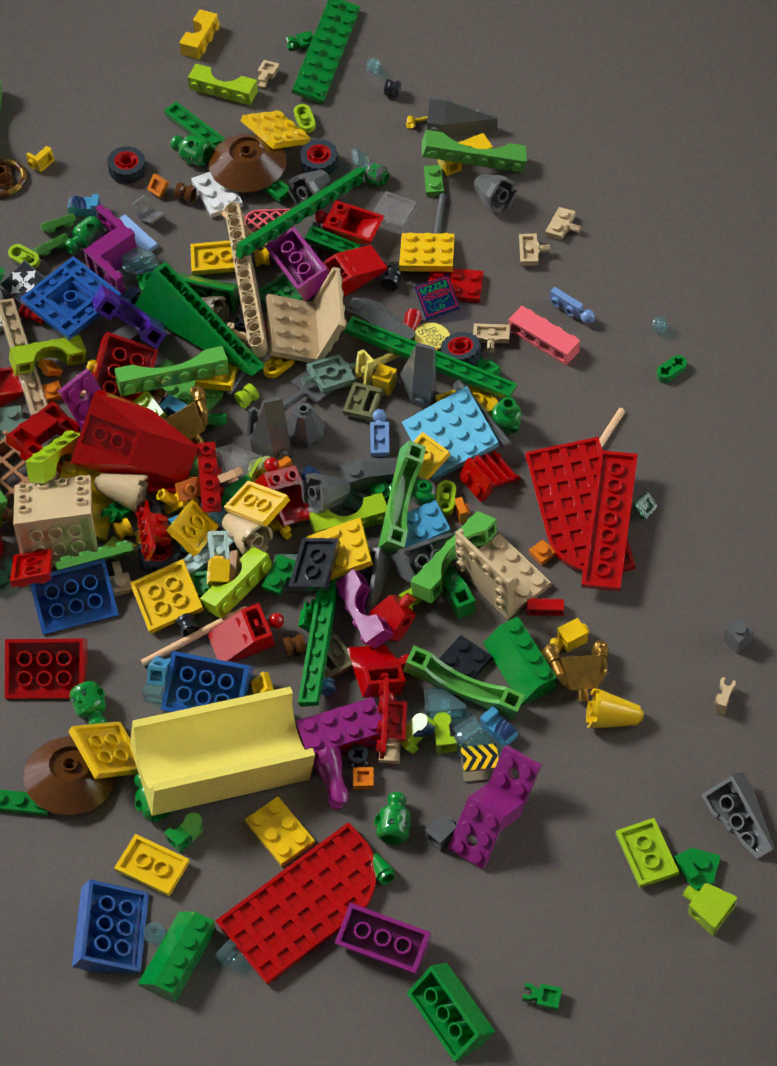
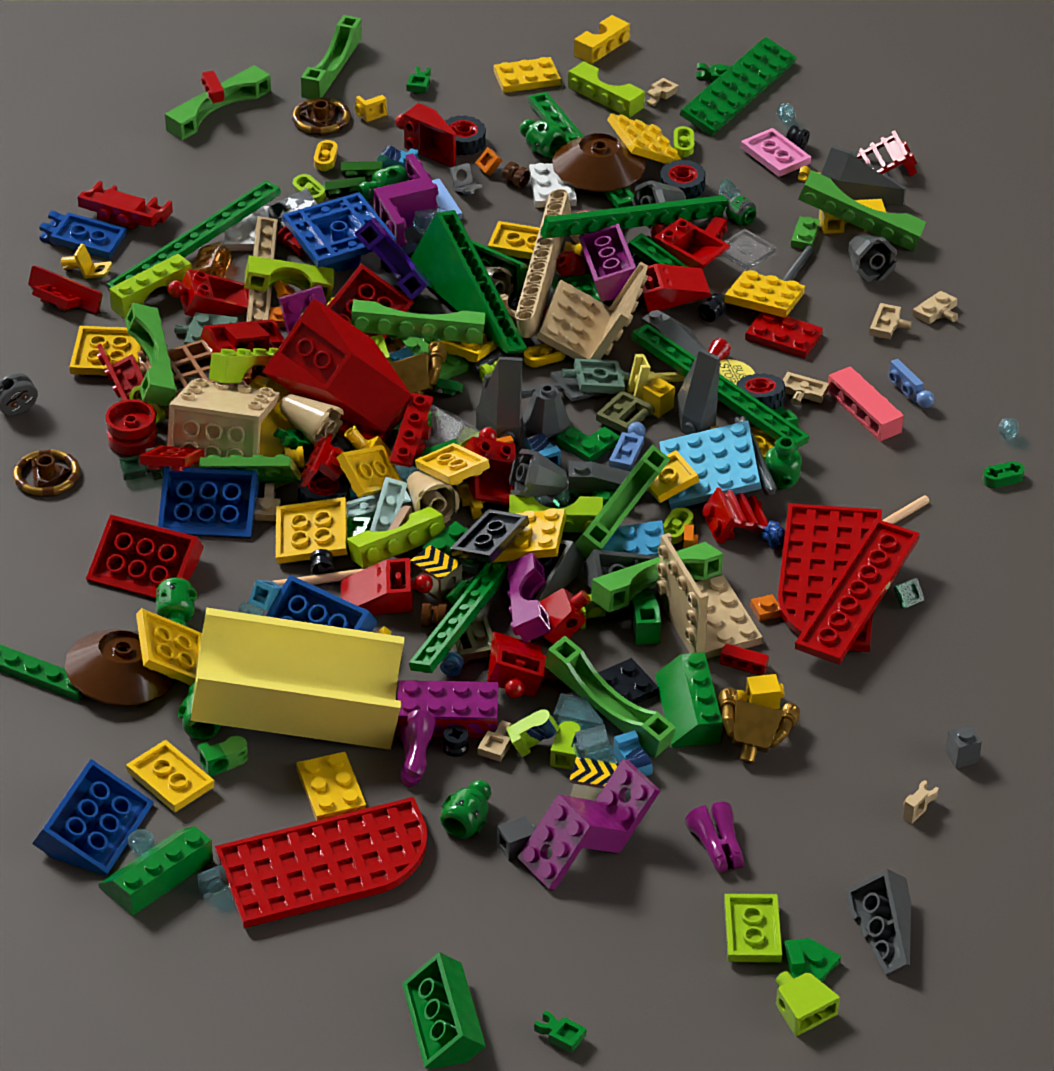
camera: 15 degrees right, 15 degrees down
(23, 218) = (325, 155): none -> yellow plate
(68, 119) = (419, 81): none -> green plate
(100, 175) = (428, 134): none -> red slope
(152, 86) = (527, 74): none -> yellow plate
(188, 489) = (383, 435): orange bracket -> none
(218, 570) = (379, 516): yellow brick -> none
(231, 476) = (437, 434): light nougat plate -> none
(266, 271) = (570, 264): none -> red head
(283, 602) = (440, 569): none -> piece
(315, 459) = (540, 444): none -> leg
(346, 443) = (588, 447): none -> green plate
(363, 778) = (451, 762): orange plate -> none
(364, 196) = (717, 227): none -> red piece
(380, 107) = (775, 152): none -> bright pink plate
(383, 871) = (431, 857): green cone -> none
(383, 939) = (397, 915): magenta brick -> none
(393, 719) = (508, 706): red bracket -> none
(423, 491) = (651, 509): green head -> none
(437, 297) = (755, 337): clear blue tile -> none
(476, 80) = (897, 150): none -> plate
(522, 483) = (773, 534): none -> blue plant
(573, 772) = (700, 823): none -> magenta piece
(611, 711) = (775, 776): yellow cone -> none

